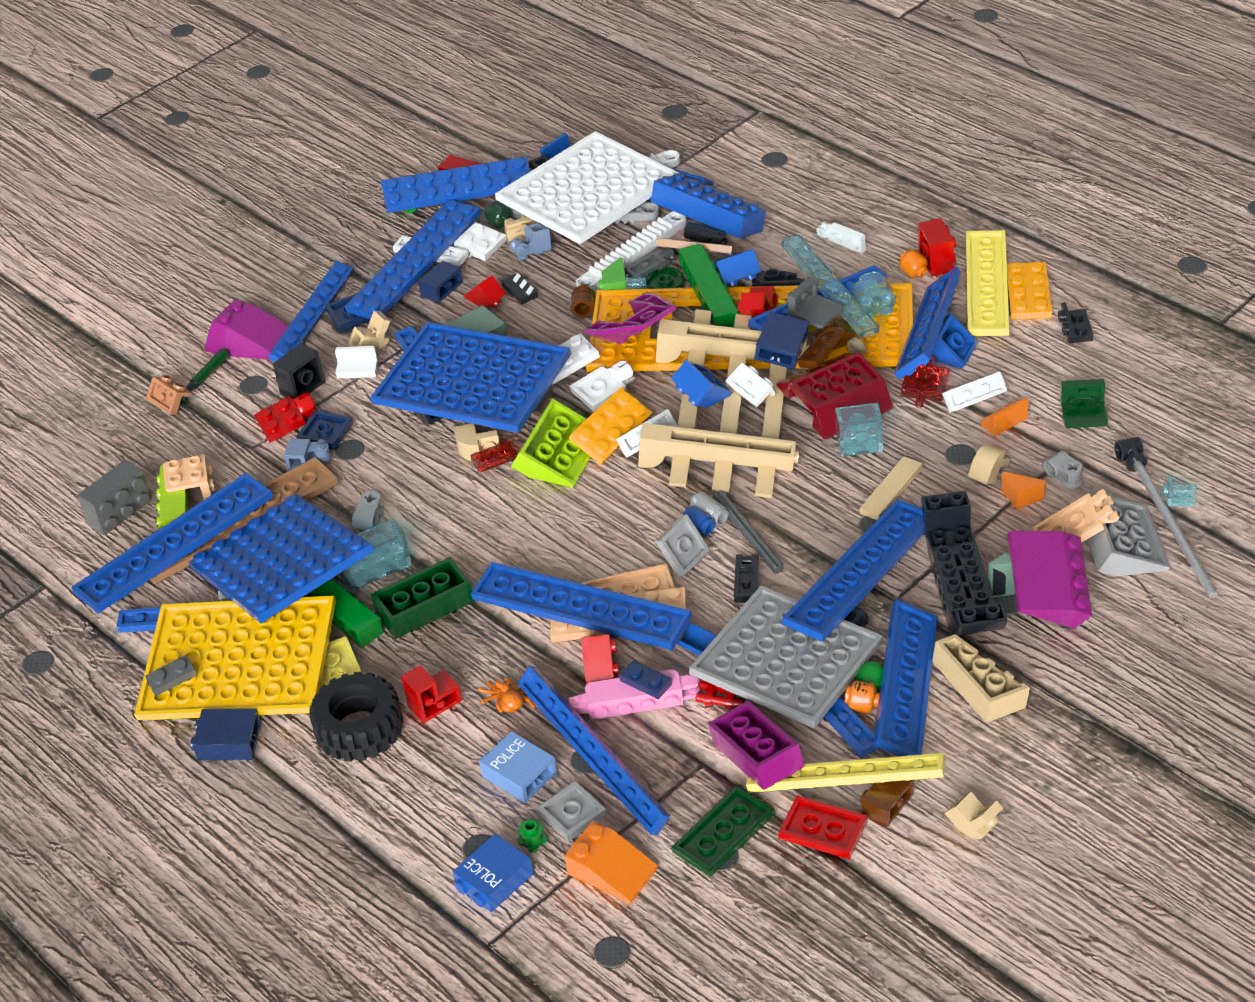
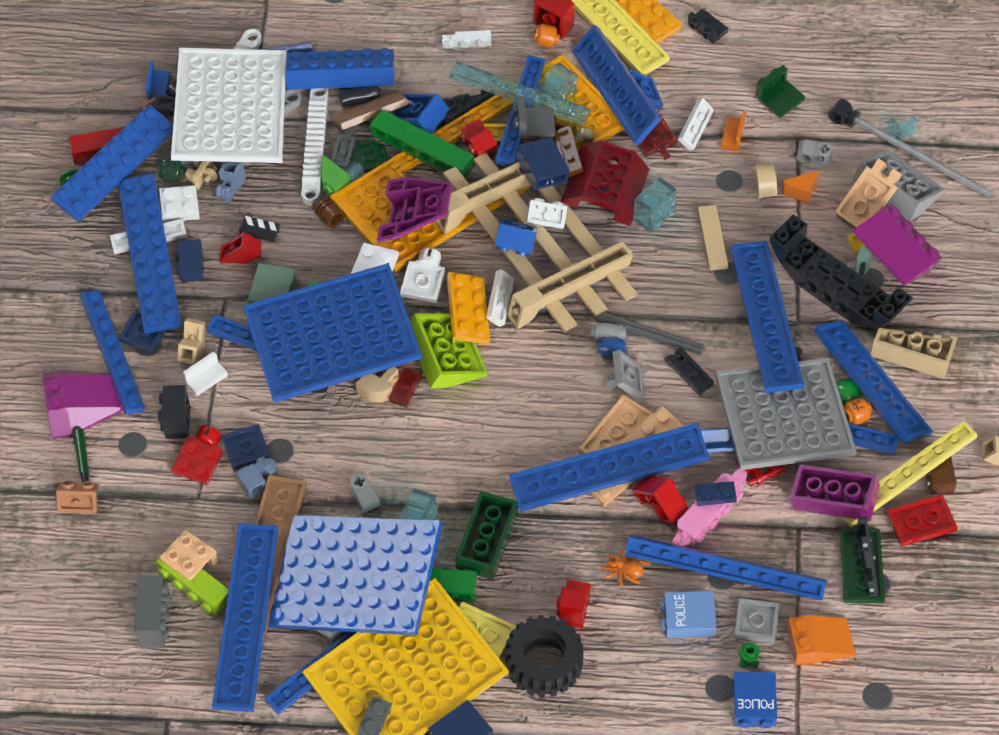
camera: 45 degrees left, 15 degrees up
(728, 815) = (866, 554): none -> black wing

